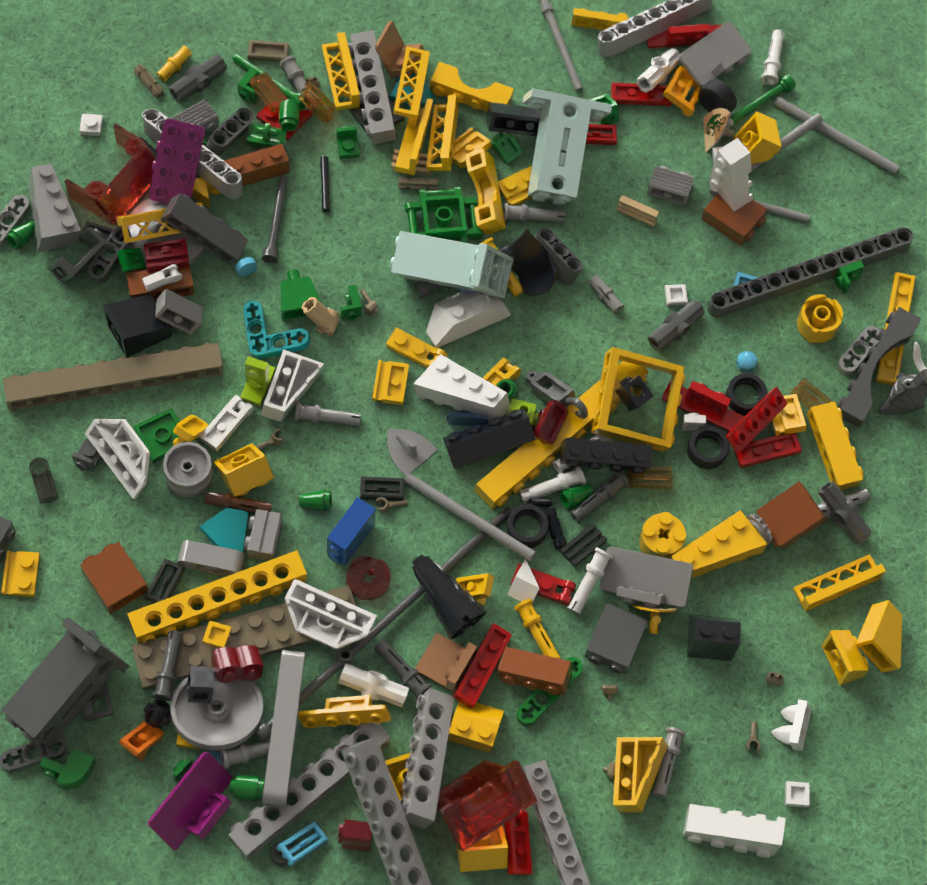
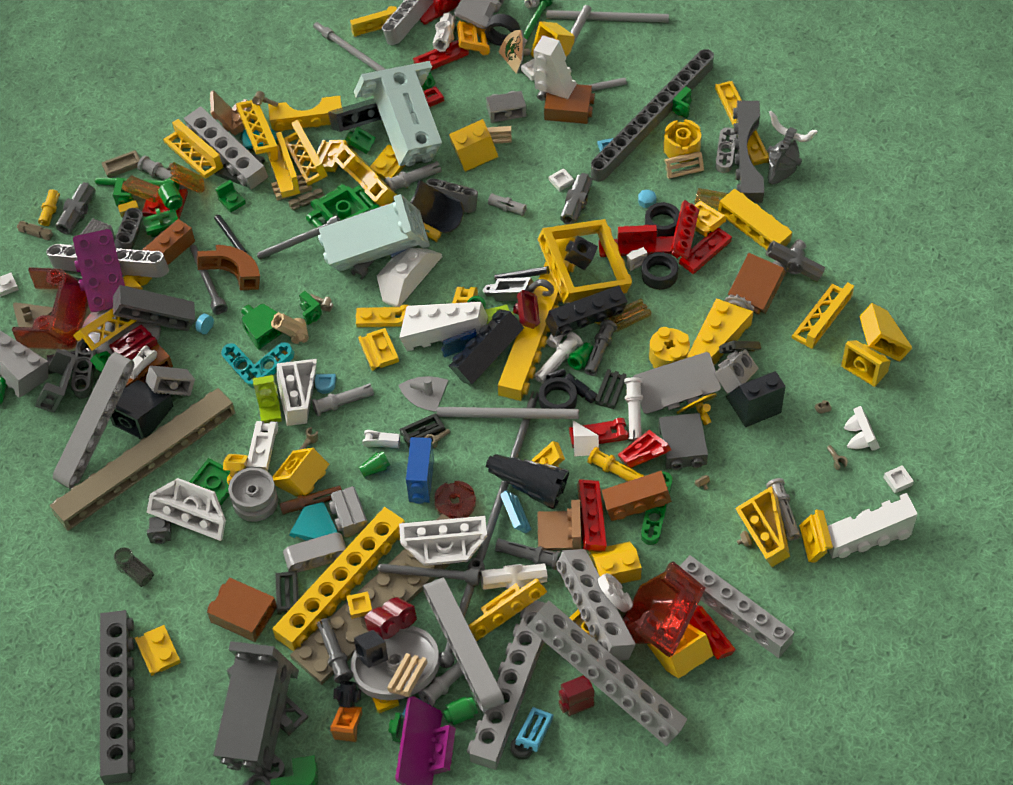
camera: 20 degrees left, 10 degrees down
(84, 317) = (93, 420): none -> light grey beam
(95, 169) = (28, 313): none -> dark tan piece
(214, 726) = (403, 674): none -> tan tile
(252, 105) = (123, 207): none -> yellow plate
(309, 214) = (234, 261): none -> dark orange arch
(321, 389) = (325, 383): none -> medium azure tile
(333, 665) = (470, 576): none -> dark grey piece
(341, 480) = (381, 439): none -> white bar
(415, 621) = (515, 512): none -> medium azure tile
(422, 228) = (295, 240): none -> dark grey piece
(432, 52) = (260, 97): none -> dark tan hand
(451, 757) = (613, 590): none -> white tile
(571, 379) = (524, 273): none -> black bar
(572, 627) = (644, 449): none -> red wing
(609, 214) = (473, 145): none -> yellow slope
(678, 807) = (815, 536): none -> yellow plate
(710, 596) = (735, 370): none -> light grey brick
(729, 573) = (734, 345): none -> pearl dark grey tile
(807, 338) = (669, 167): none -> tan tile

